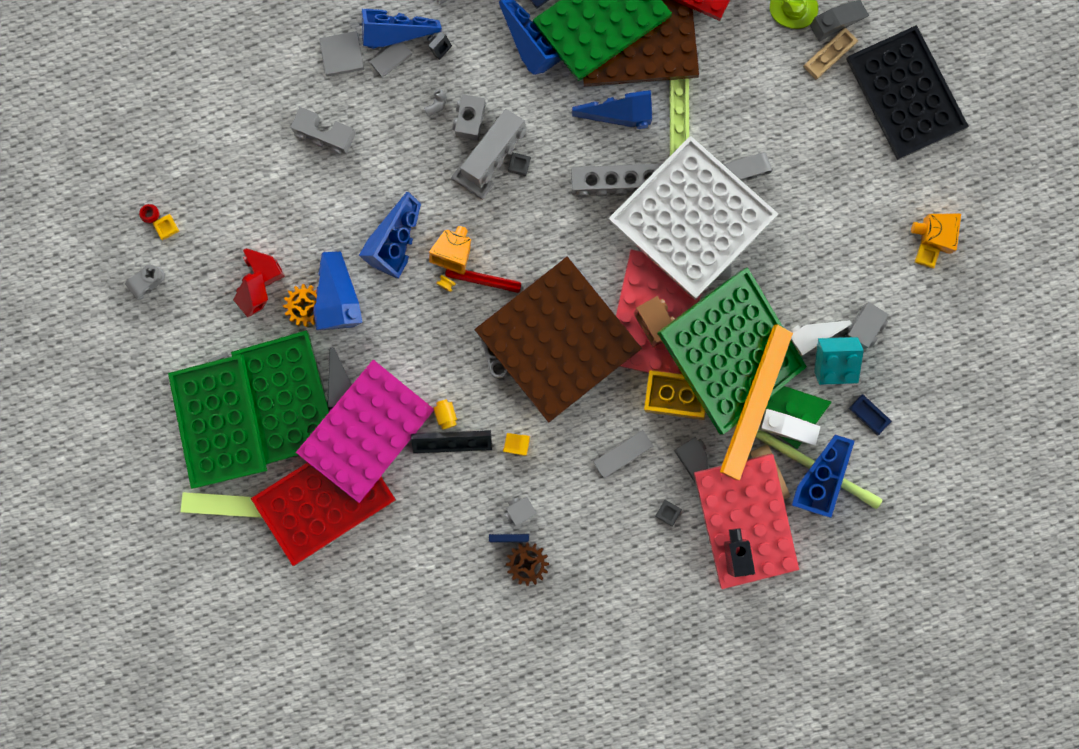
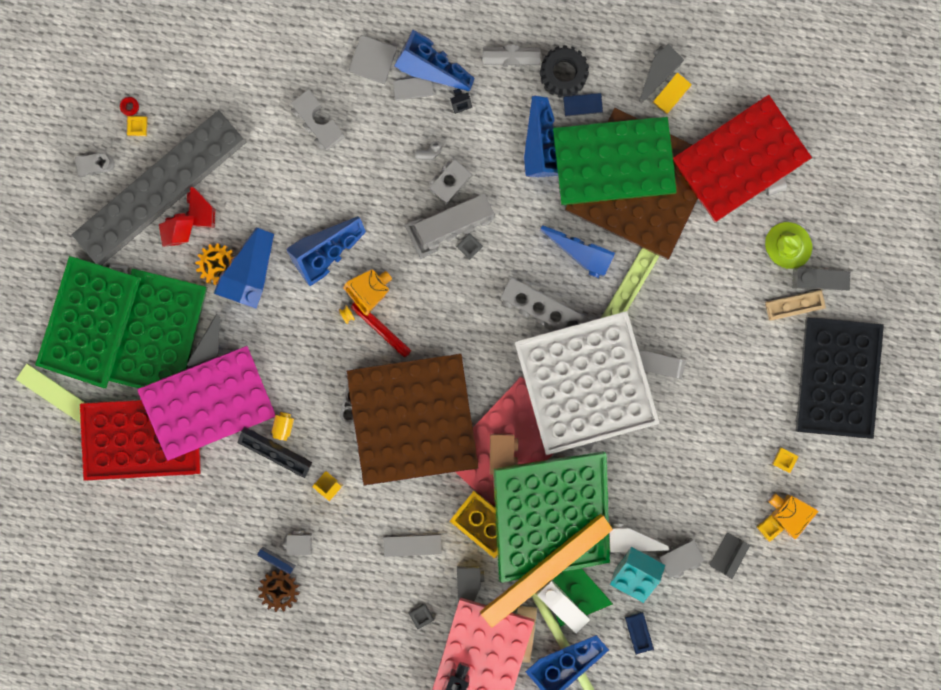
camera: 30 degrees right, 5 degrees up
(215, 267) = (159, 188): none -> dark grey brick
(904, 189) = (785, 460): none -> yellow plate
(907, 299) = (729, 555): none -> dark grey panel

